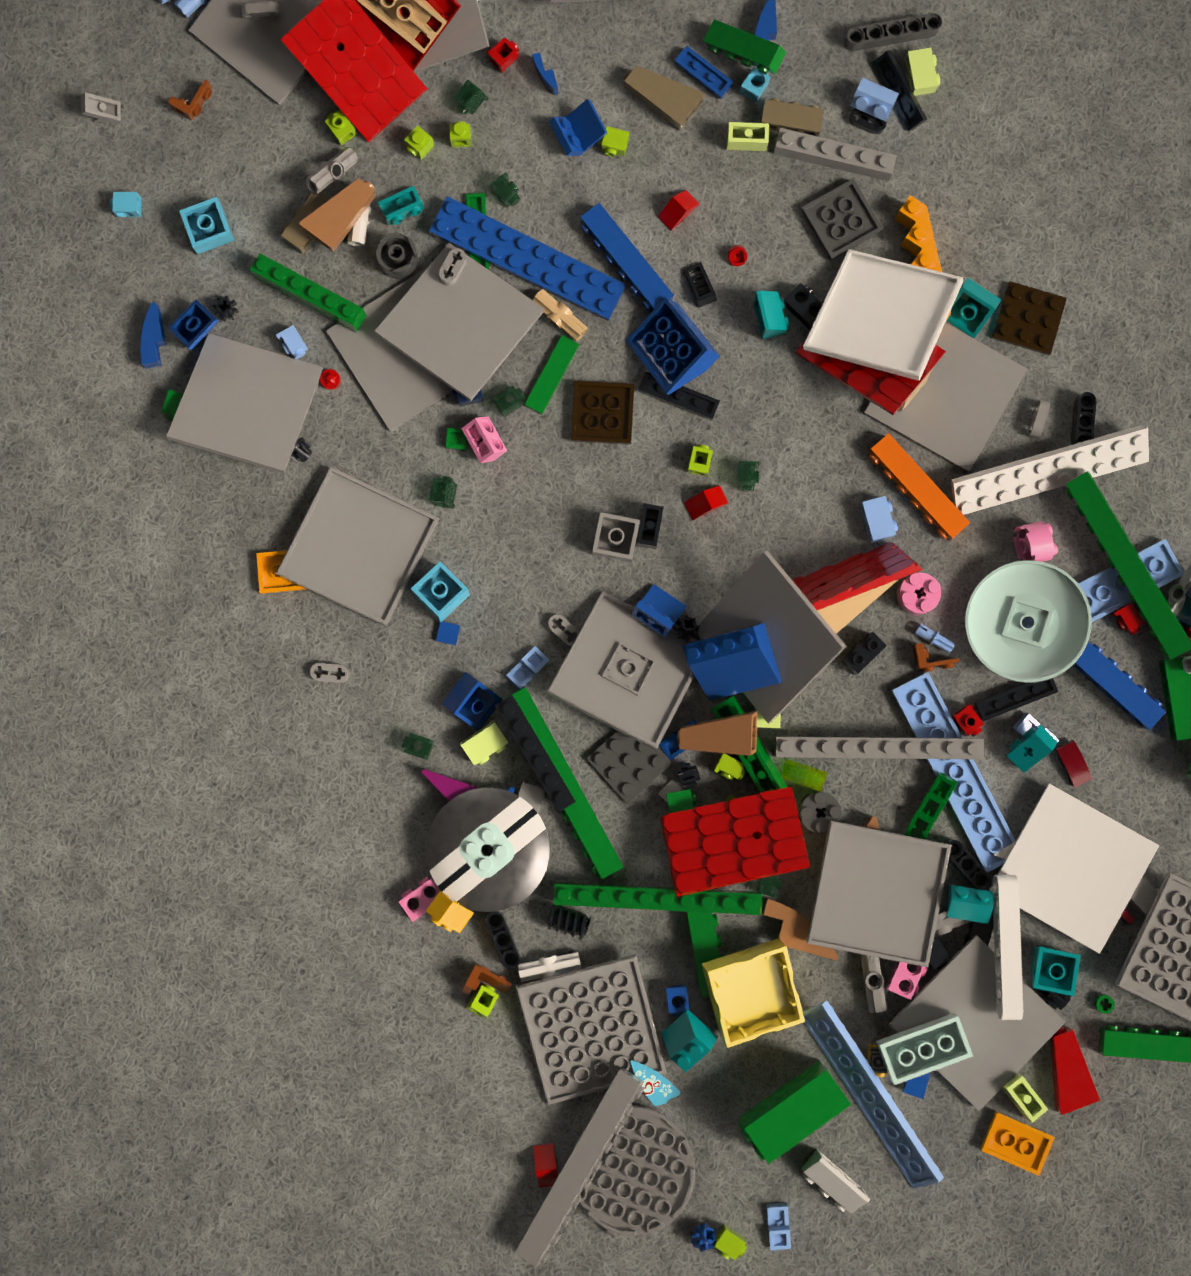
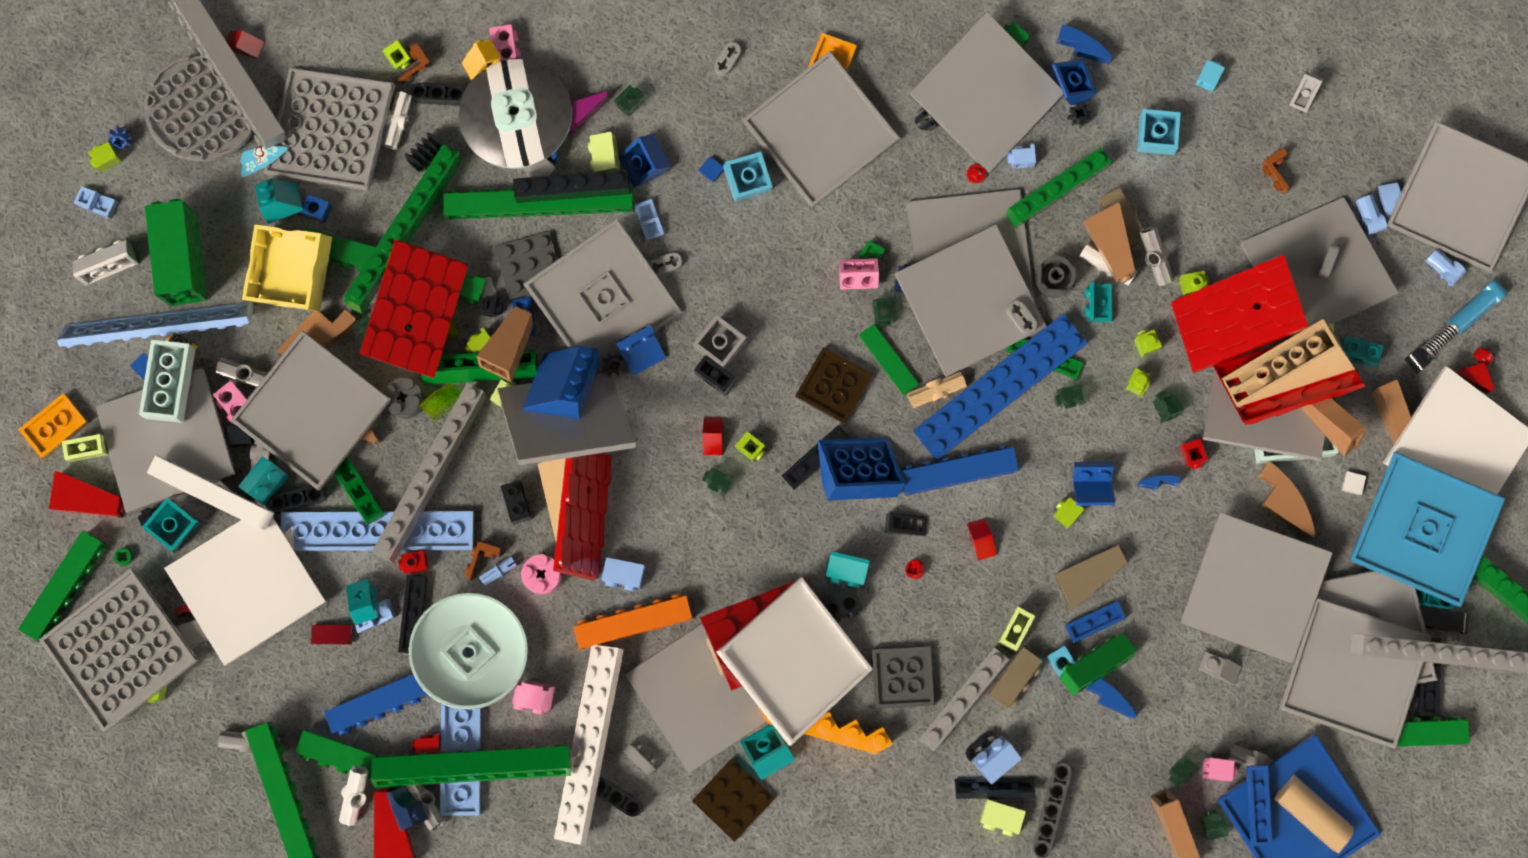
camera: 125 degrees right, 5 degrees down
(438, 487) = (831, 220): clear green brick -> none

